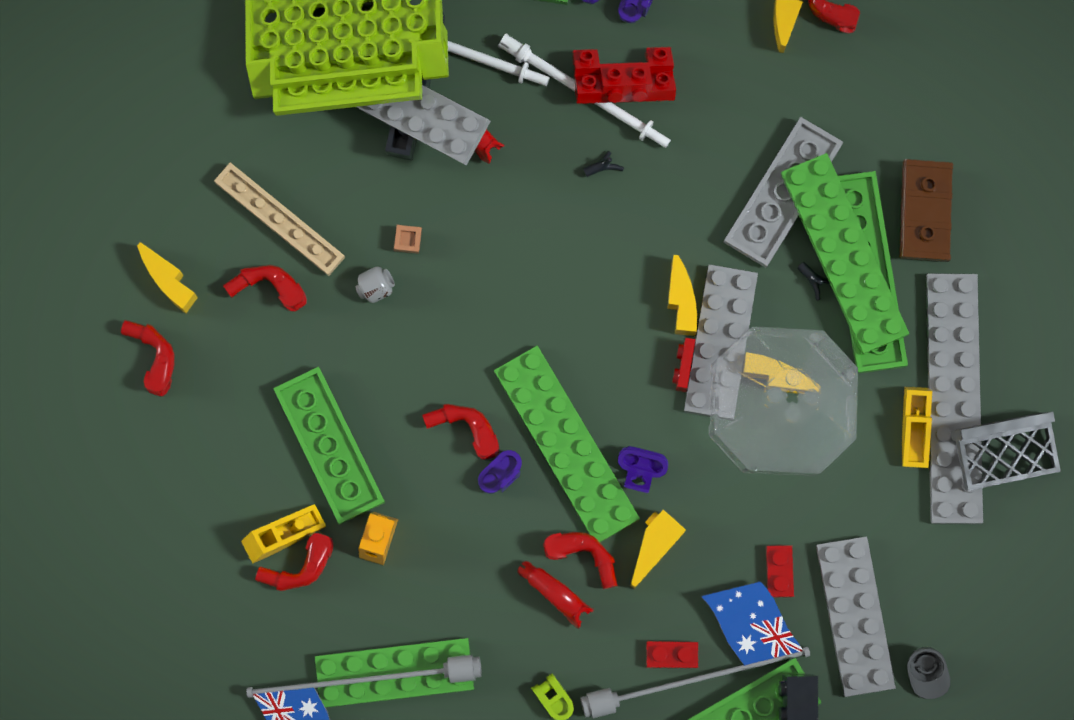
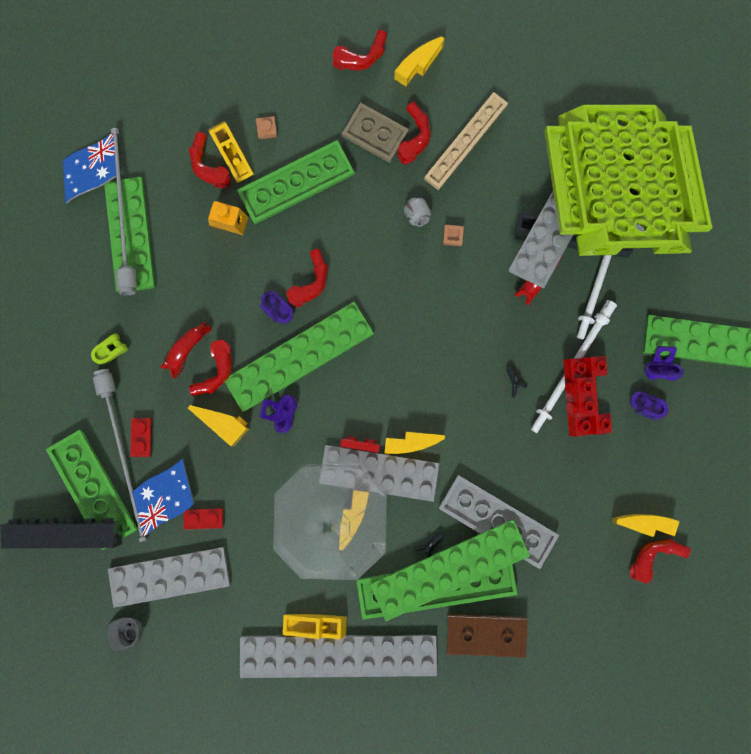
camera: 90 degrees right, 5 degrees up
(250, 485) = (266, 127): none -> nougat plate
(263, 338) = (375, 132): none -> dark tan plate
(998, 430) = (312, 698): fence -> none

